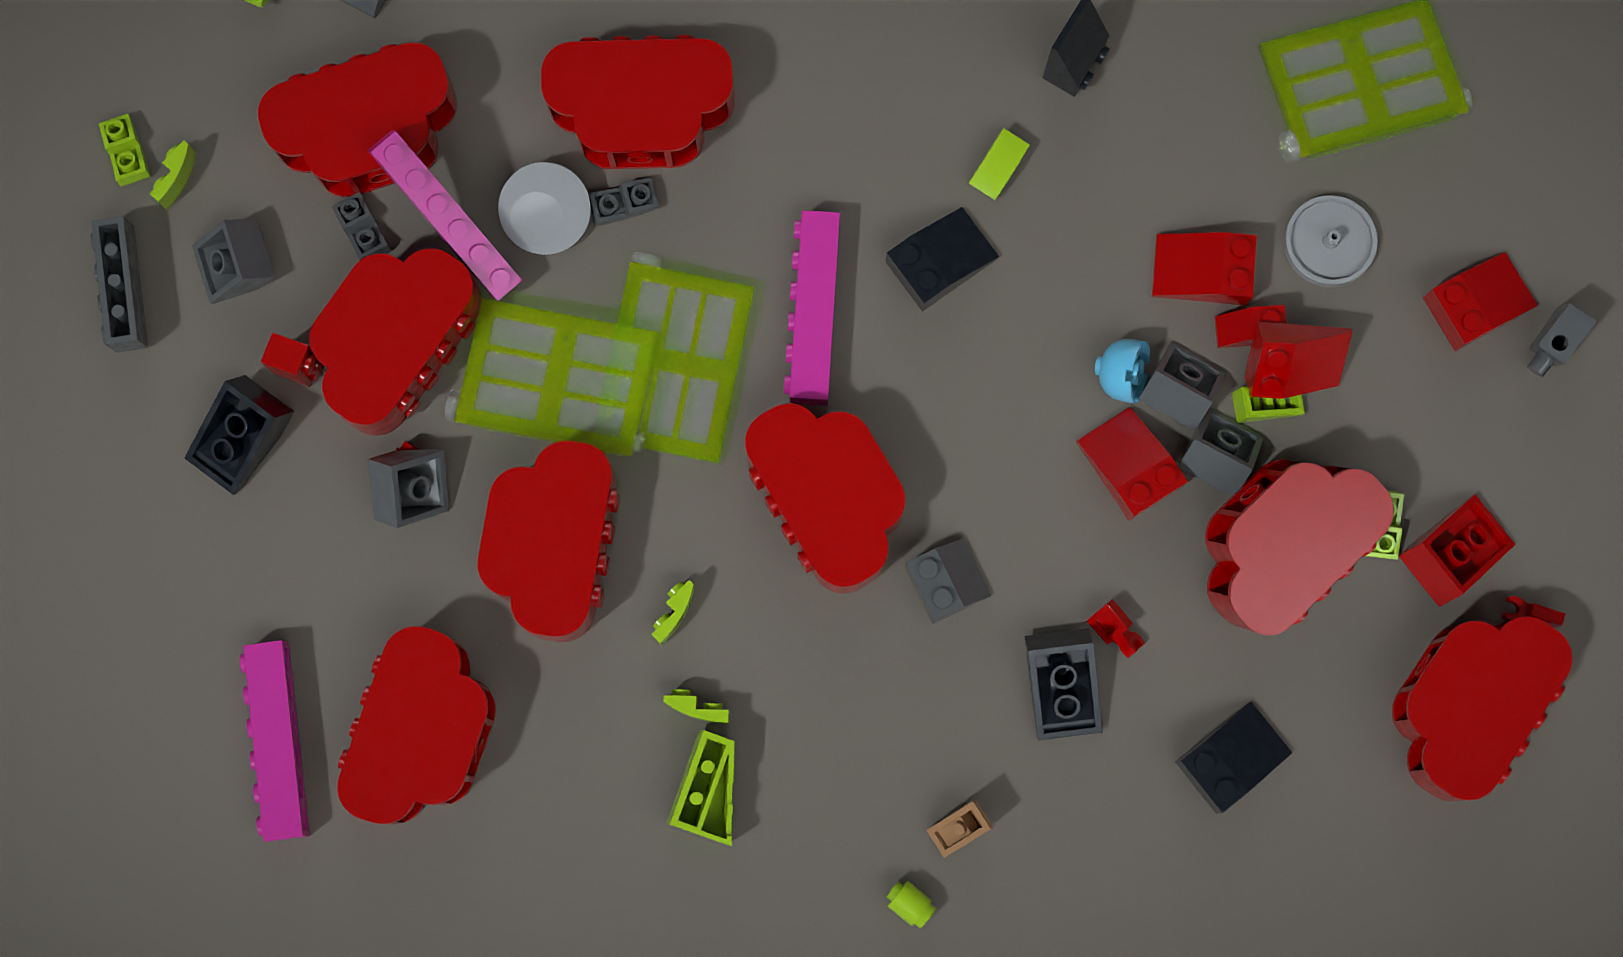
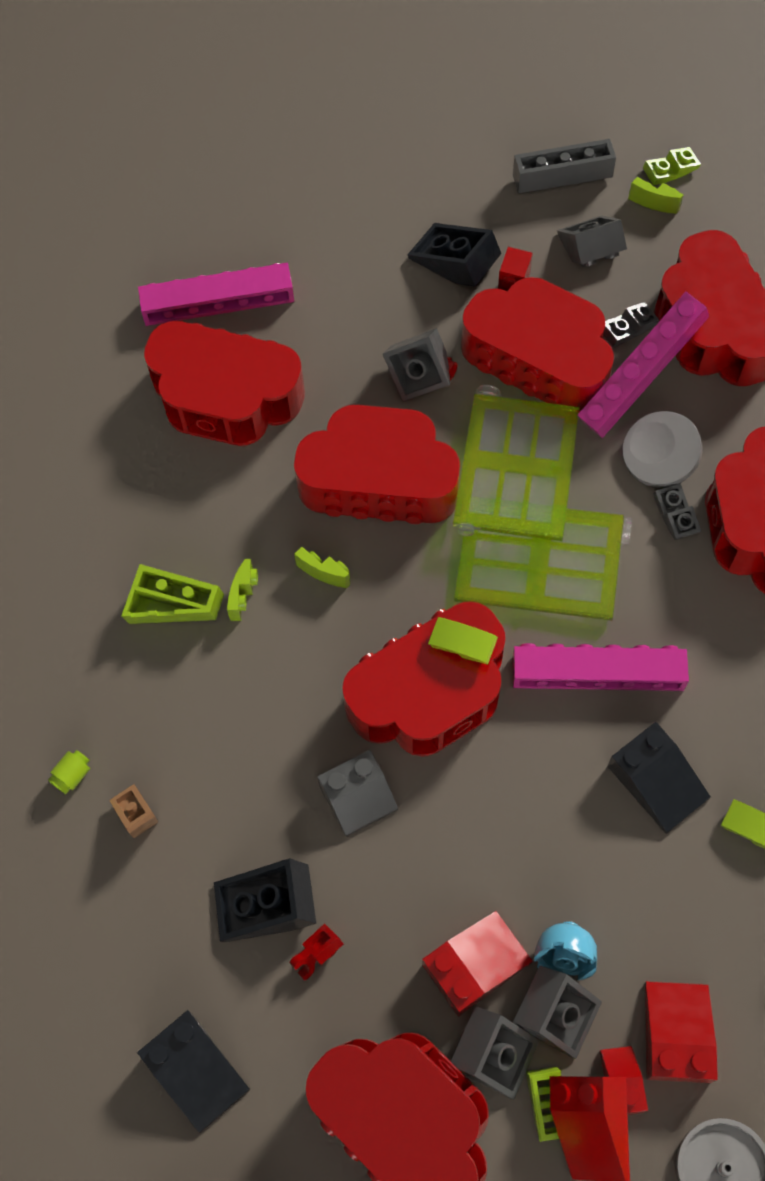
camera: 90 degrees right, 15 degrees down
(798, 448) = (463, 640): none -> lime slope

